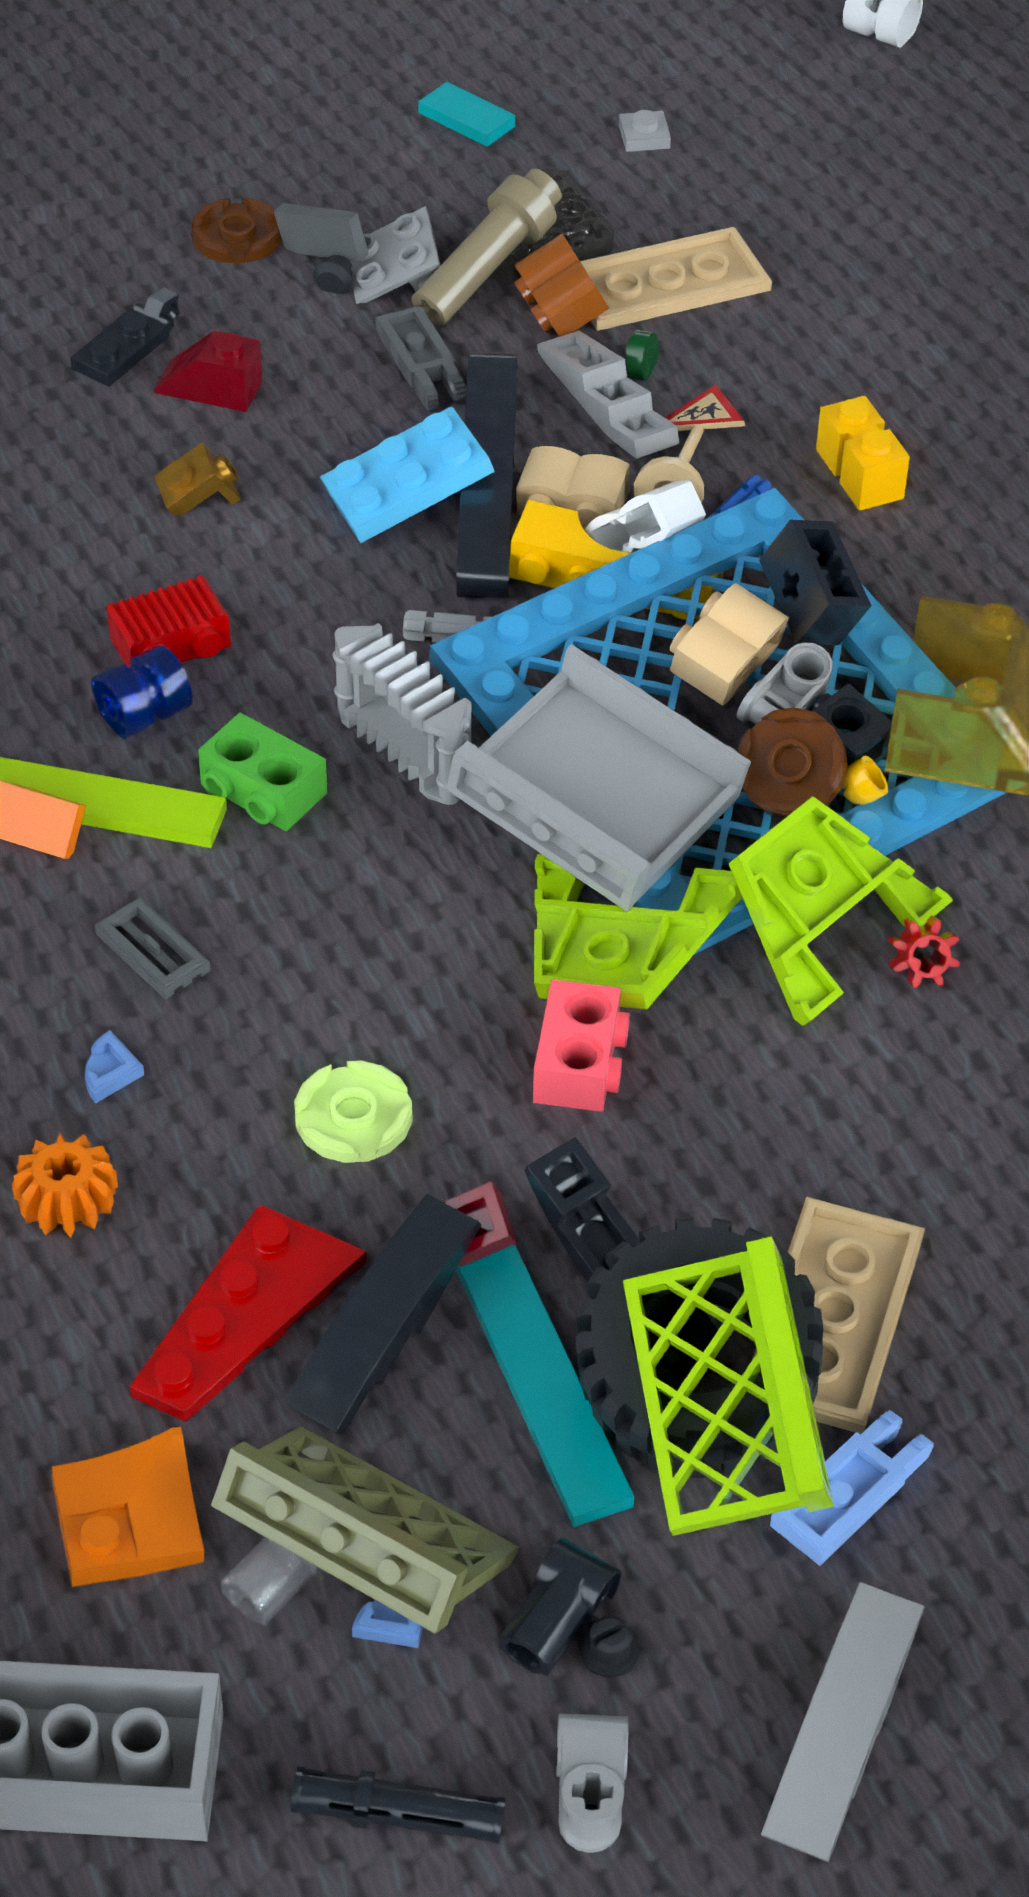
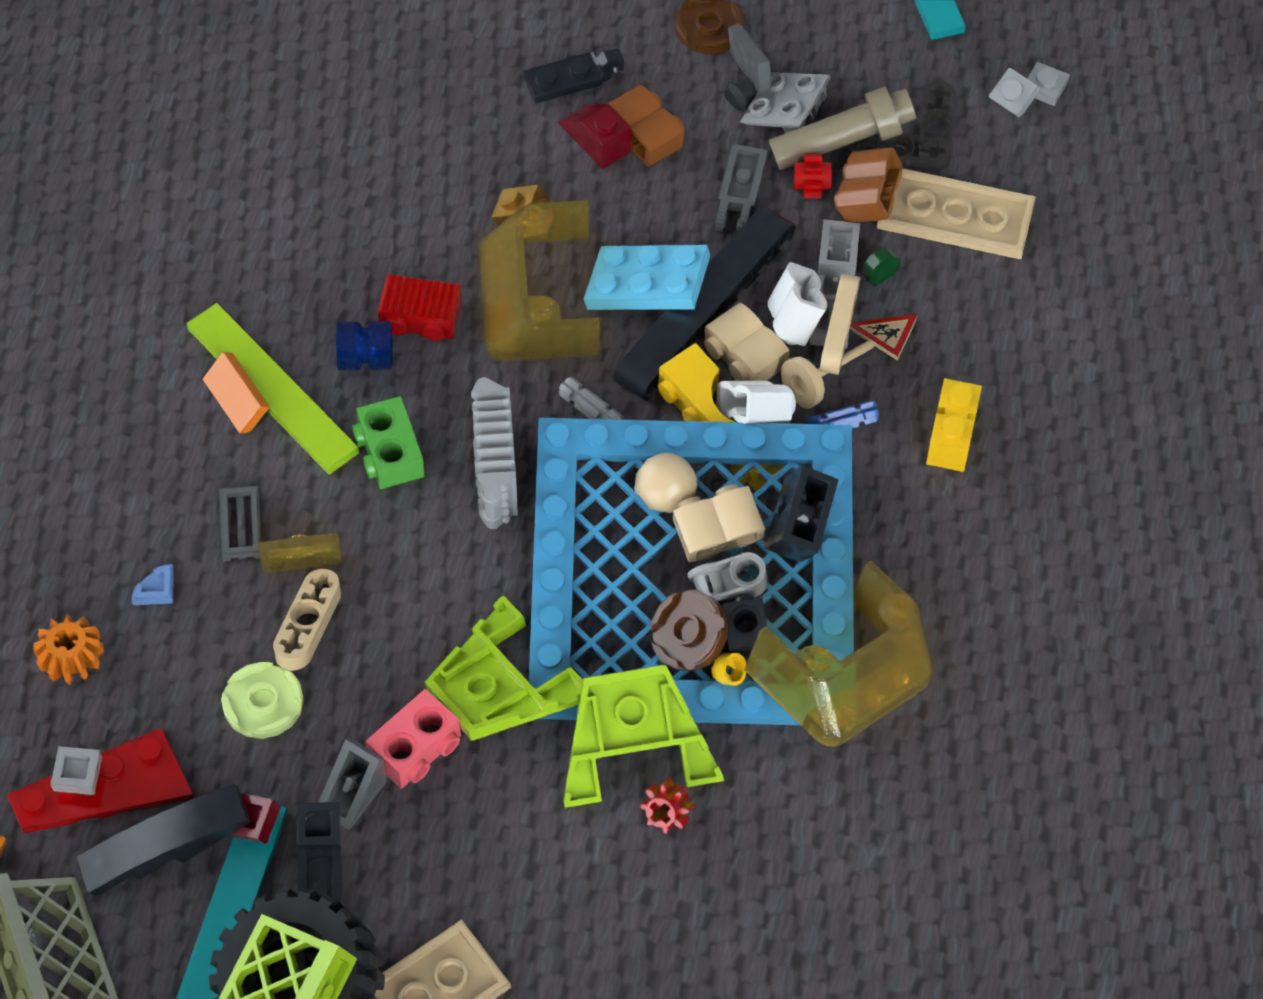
camera: 35 degrees right, 10 degrees up
(210, 1296) = (76, 770): none -> light grey plate
(260, 933) = (300, 552): none -> clear yellow plate
(267, 565) = (525, 325): none -> clear yellow windscreen
(284, 338) = (654, 129): none -> dark orange brick
(329, 1015) = (308, 635): none -> tan beam
(491, 306) = (812, 175): none -> red gear
(549, 1110) = (354, 781): none -> dark grey slope
(598, 418) = (797, 304): none -> white brick
(600, 779) = (559, 573): light grey panel -> none
(624, 147) = (1014, 92): none -> light grey plate
(633, 632) = (665, 482): none -> tan hair
(665, 409) = (839, 324): none -> tan beam

